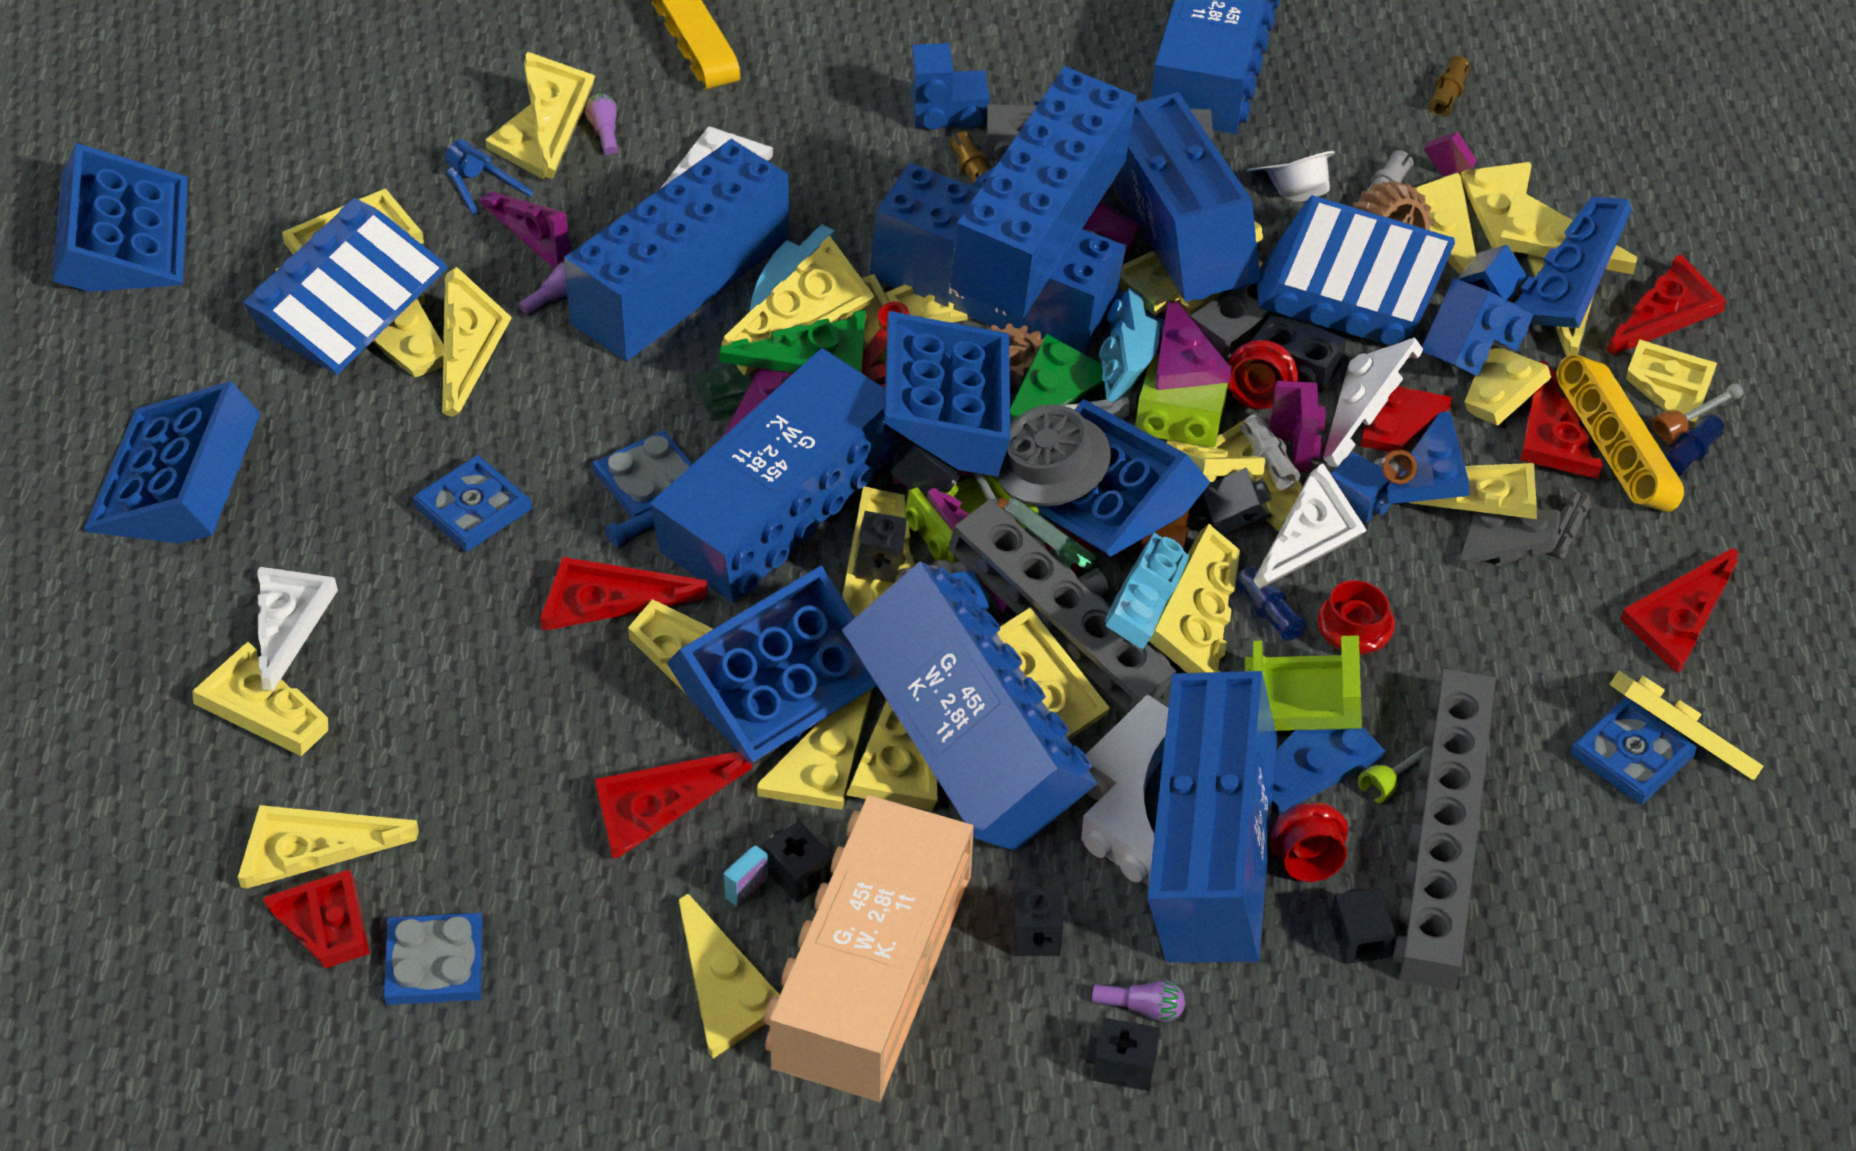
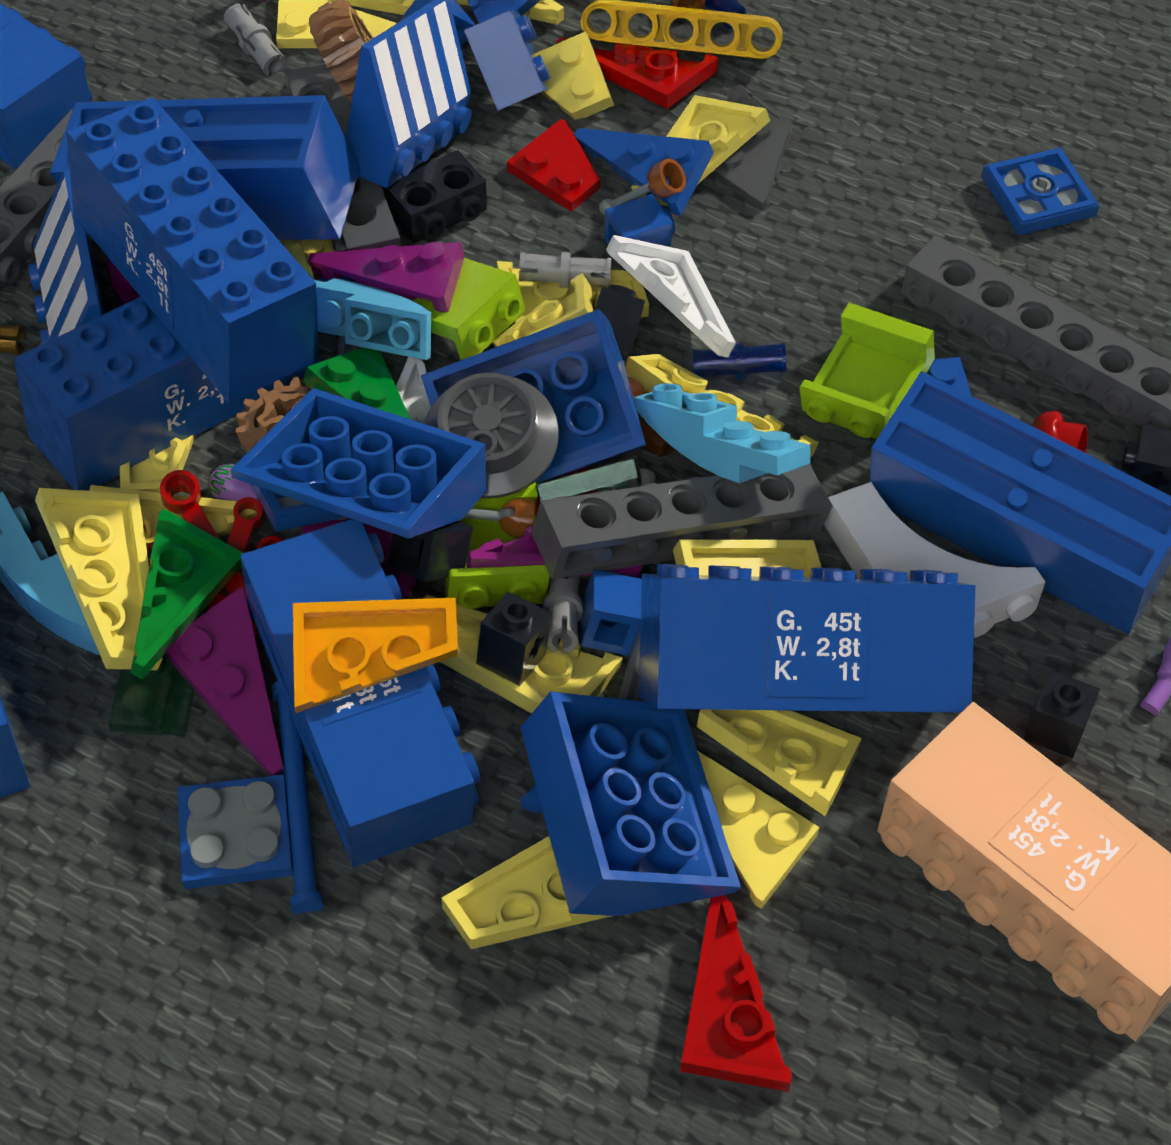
camera: 65 degrees left, 5 degrees up
(472, 503) = (163, 1041): blue piece -> none
(600, 591) = (390, 950): red wing -> none
(727, 985) = (1020, 1037): light yellow wing -> none
(745, 875) = (886, 959): medium azure tile -> none
(785, 440) = (365, 643): none -> light orange wing
(798, 861) = (887, 900): black brick -> none
(1257, 369) = (460, 220): red piece -> none
(1296, 419) = (546, 224): magenta bracket -> none
(1300, 178) = (207, 79): white piece -> none
(1357, 610) = (801, 303): red piece -> none
(1364, 393) = (514, 165): white wing -> none
(1385, 777) = (990, 368): lime hinge -> none
(1677, 613) = (899, 90): red wing -> none
(1684, 719) = (1019, 143): light yellow wing -> none

